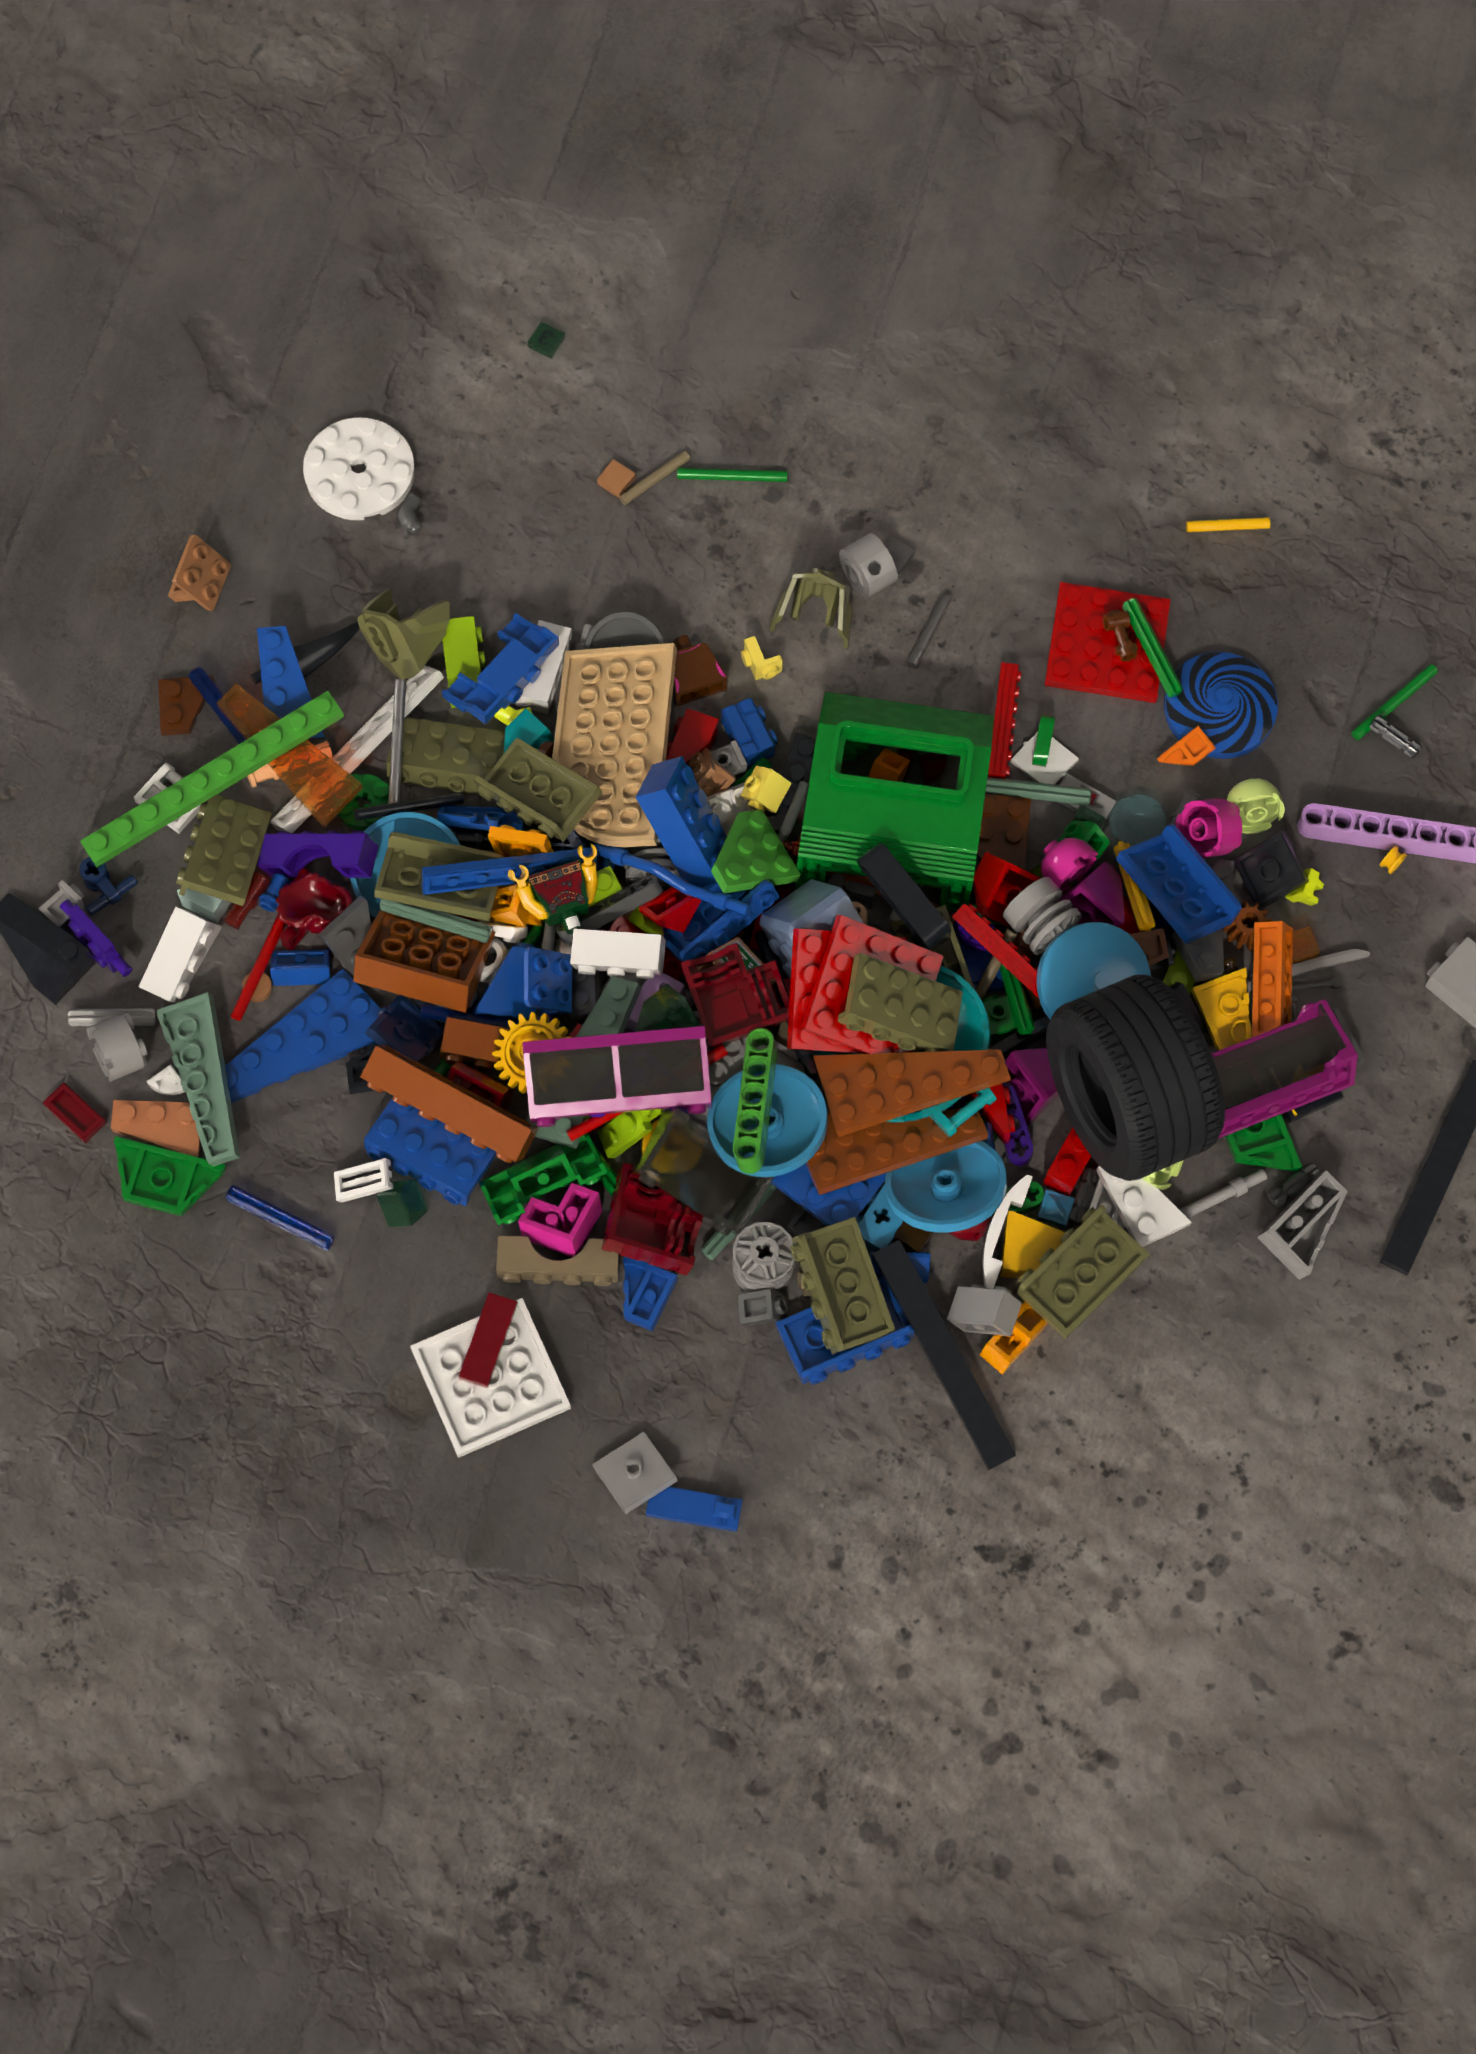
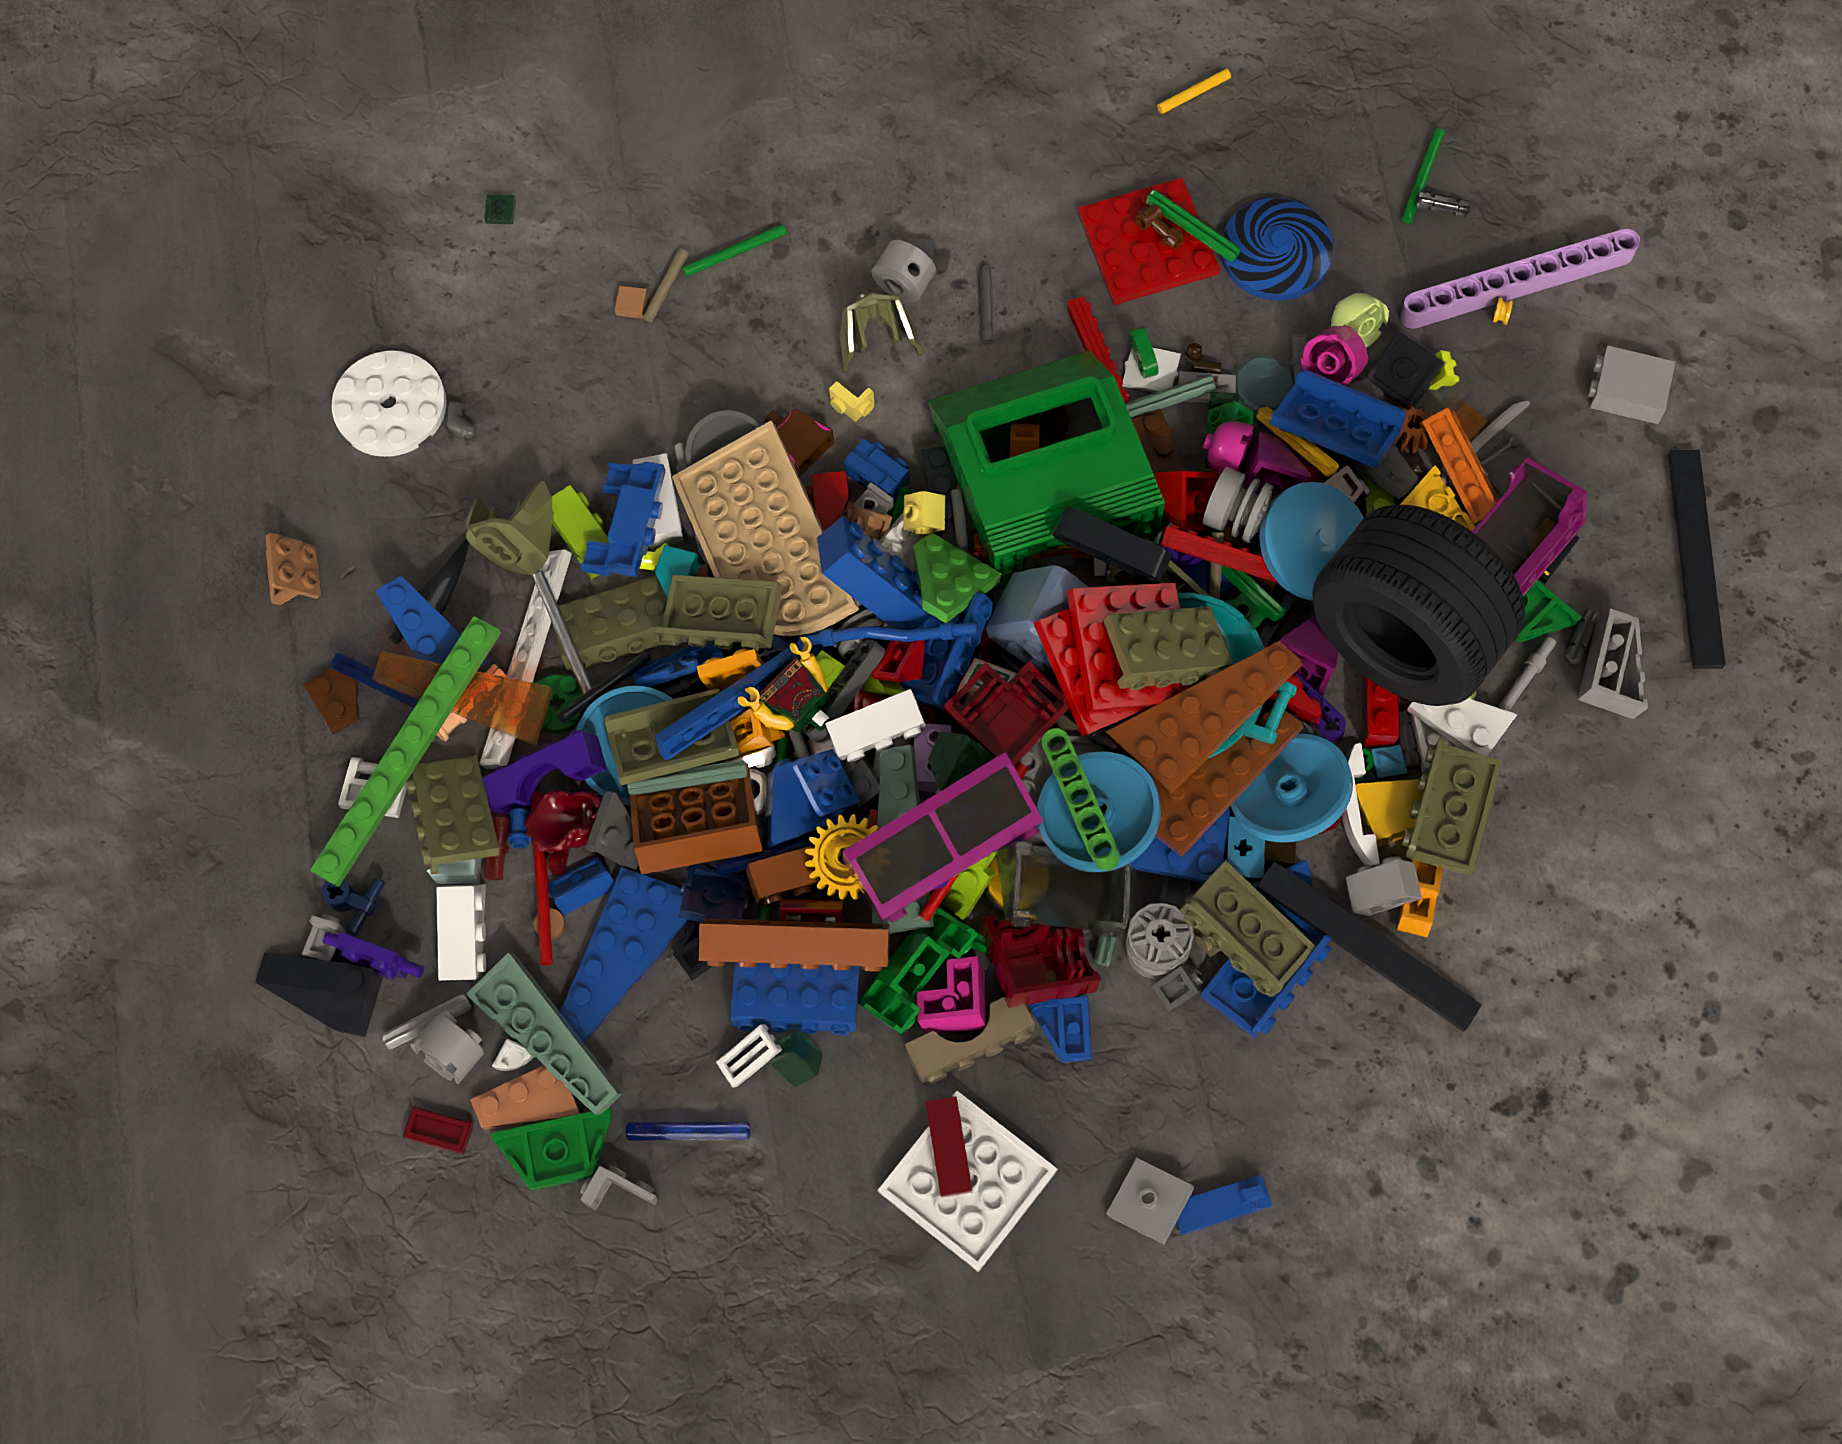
camera: 20 degrees left, 0 degrees up
(180, 1224) = (596, 1187): none -> light grey bracket
(1089, 773) = (1198, 362): none -> dark brown arm
(1189, 749) = (1273, 300): orange tile -> none

